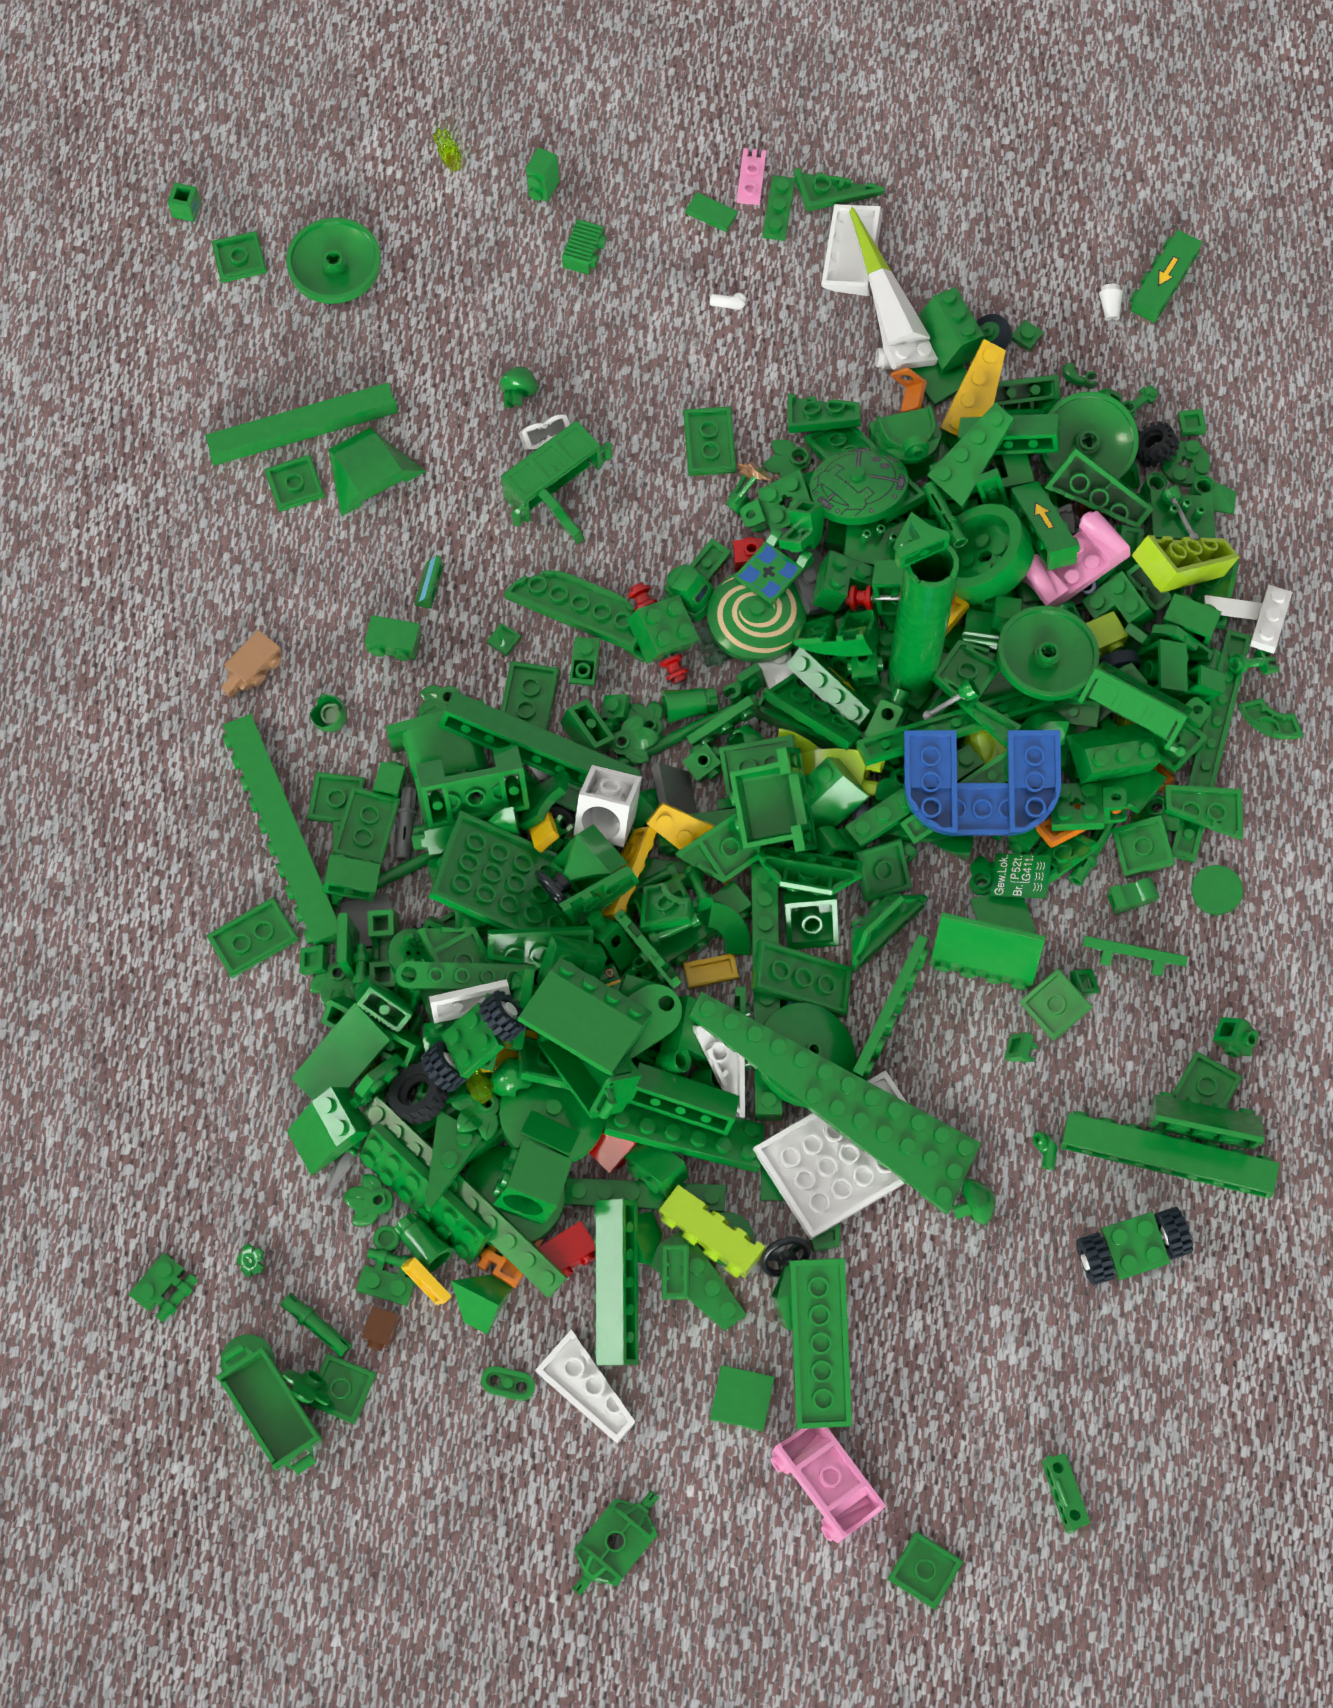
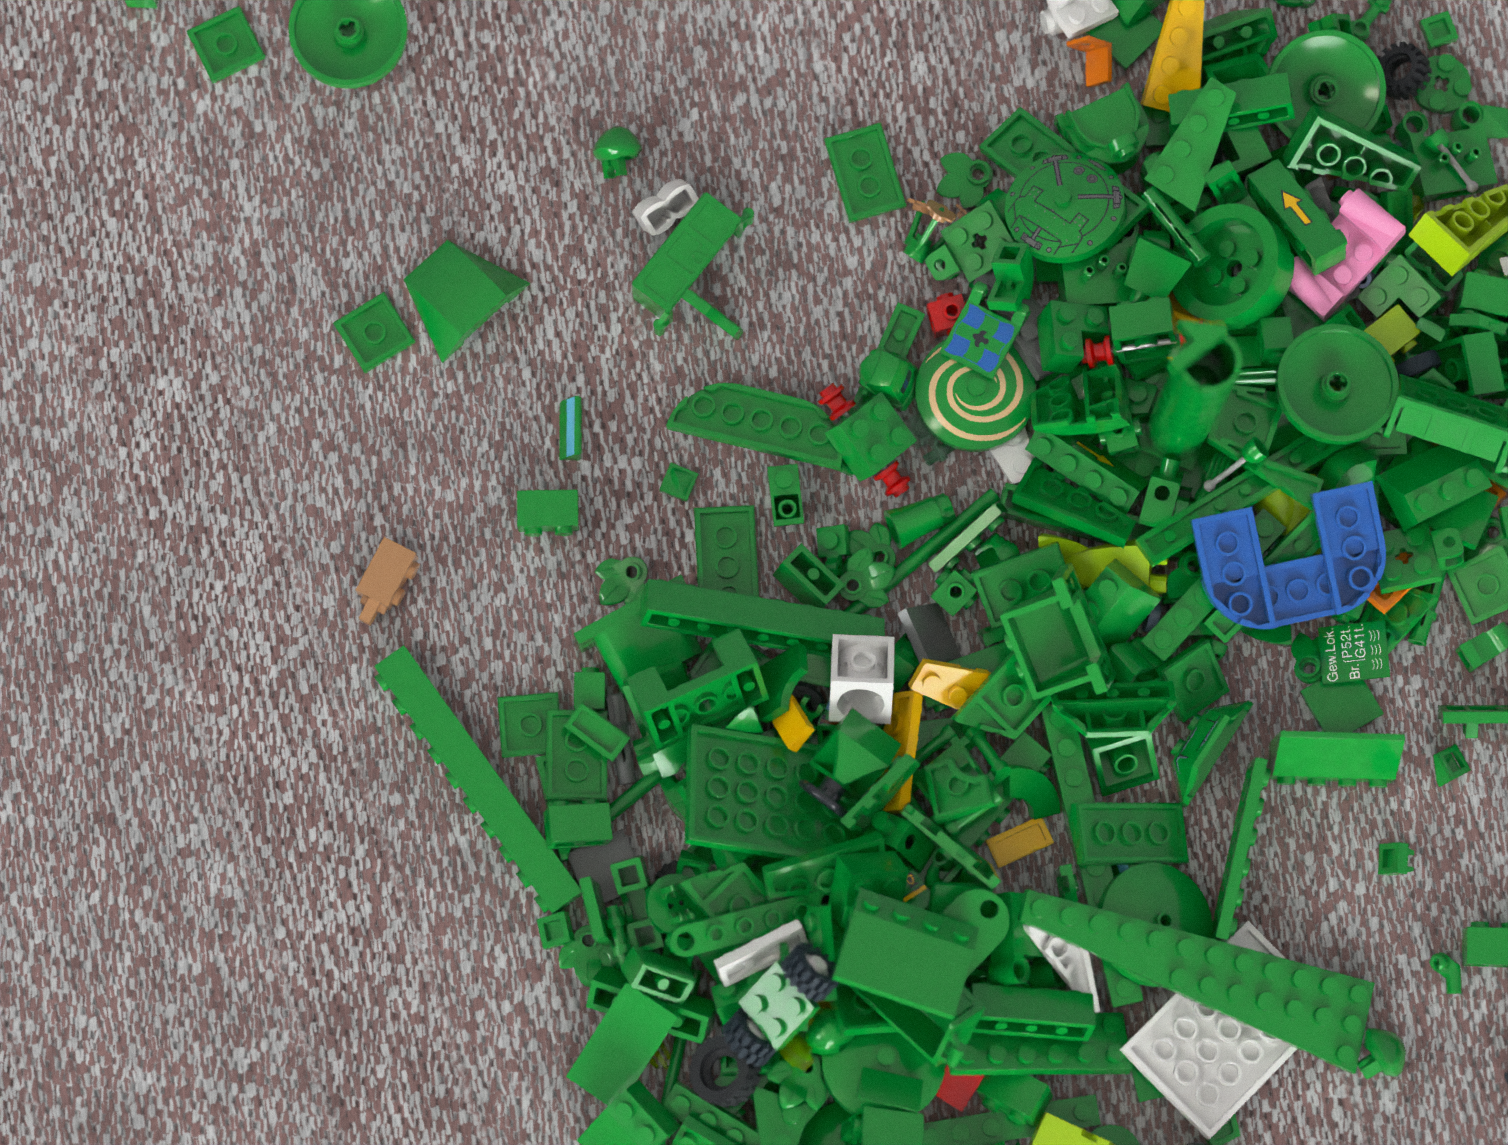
camera: 15 degrees left, 10 degrees up
(252, 937) = (475, 917): green tile -> none
(301, 423) = (364, 255): green tile -> none
(329, 713) = (495, 622): green hair -> none
(375, 1081) = (671, 1069): green plate -> none
(386, 809) = (597, 731): none -> green tile
(747, 683) = (983, 476): green plate -> none
(815, 415) = (989, 115): green wing -> none
(1056, 1004) = (1425, 798): green tile -> none

